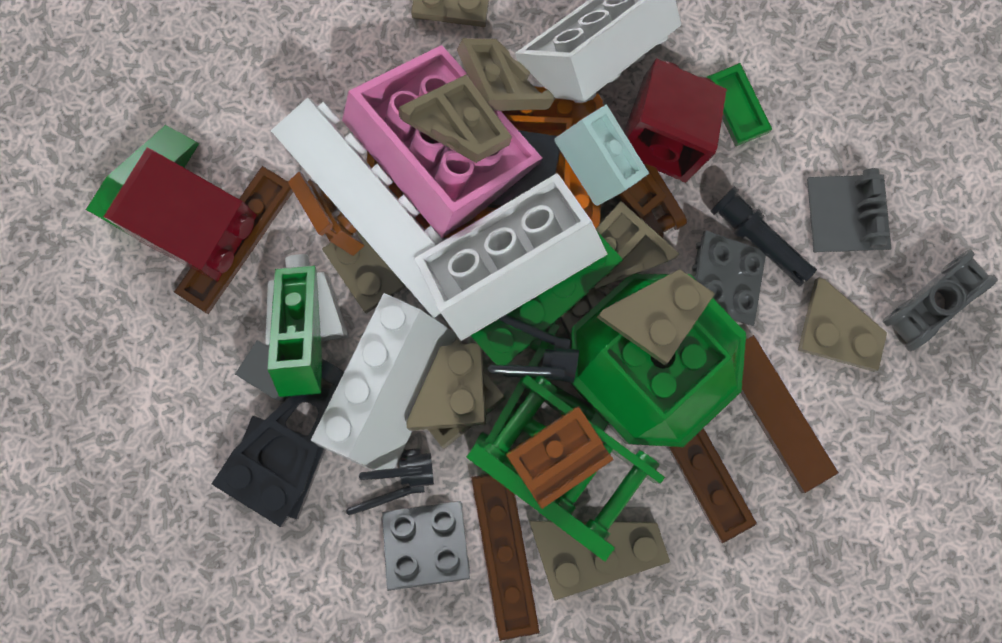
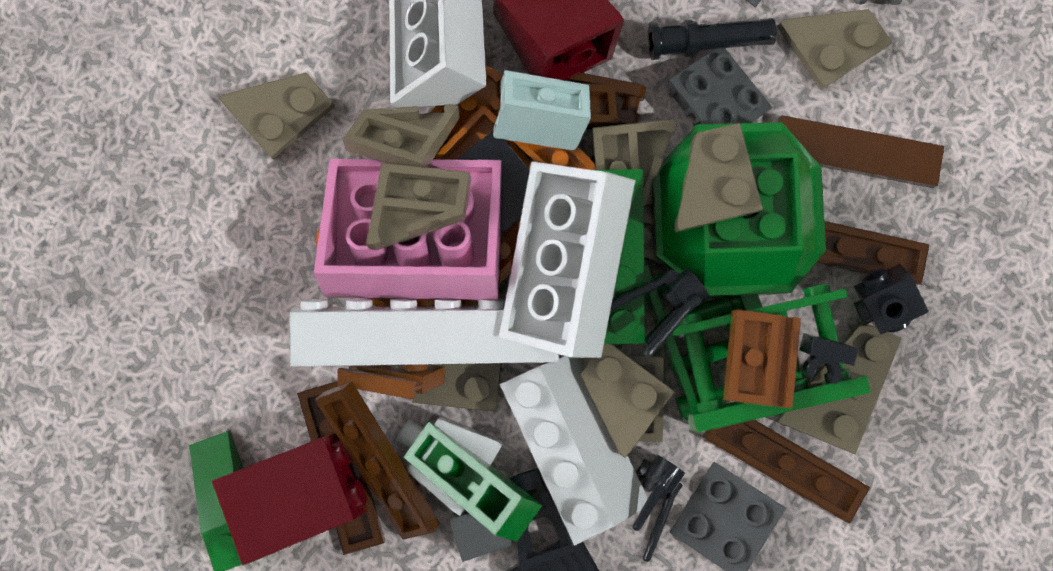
camera: 50 degrees left, 5 degrees up
(257, 256) = (377, 461): none -> reddish brown tile
(606, 502) = (826, 352): none -> black tile
(699, 530) = (889, 299): none -> black brick

